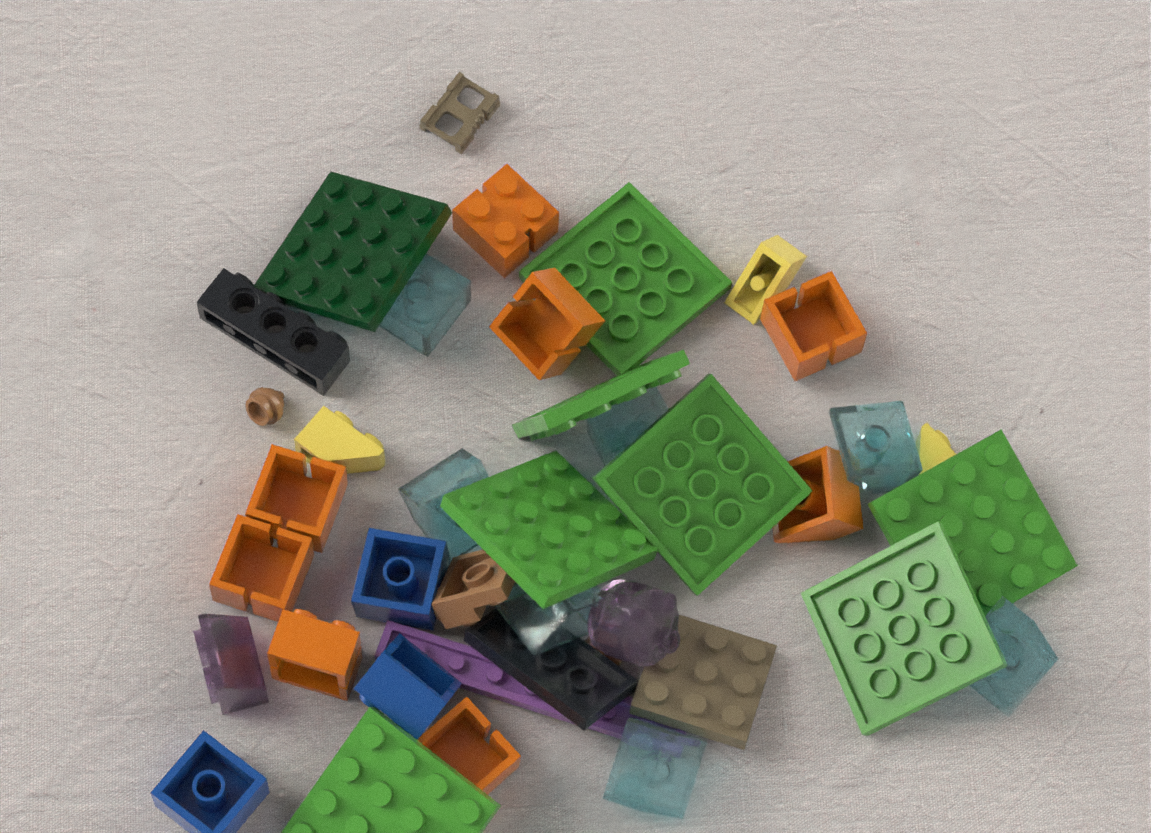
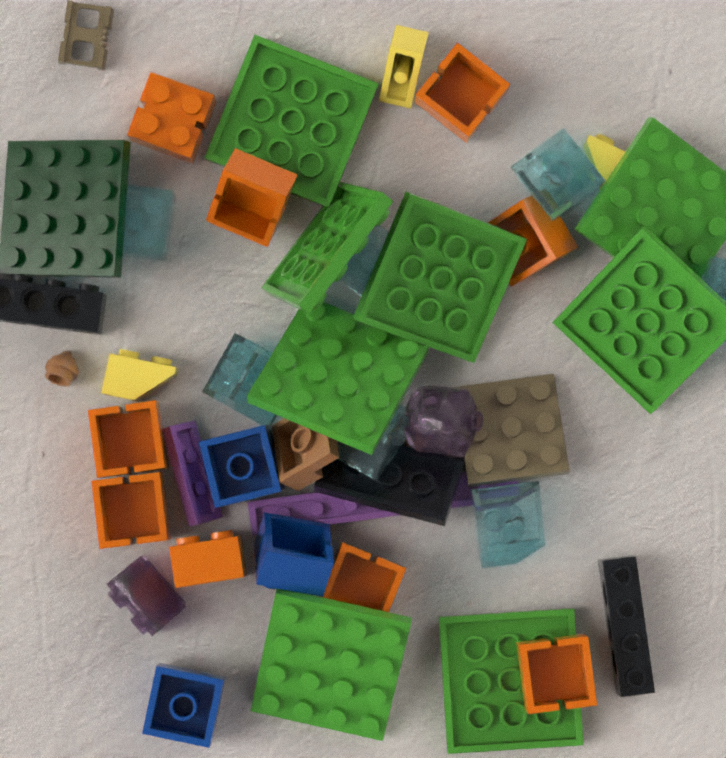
camera: 25 degrees left, 20 degrees up
(342, 564) = (190, 472): none -> medium lavender plate

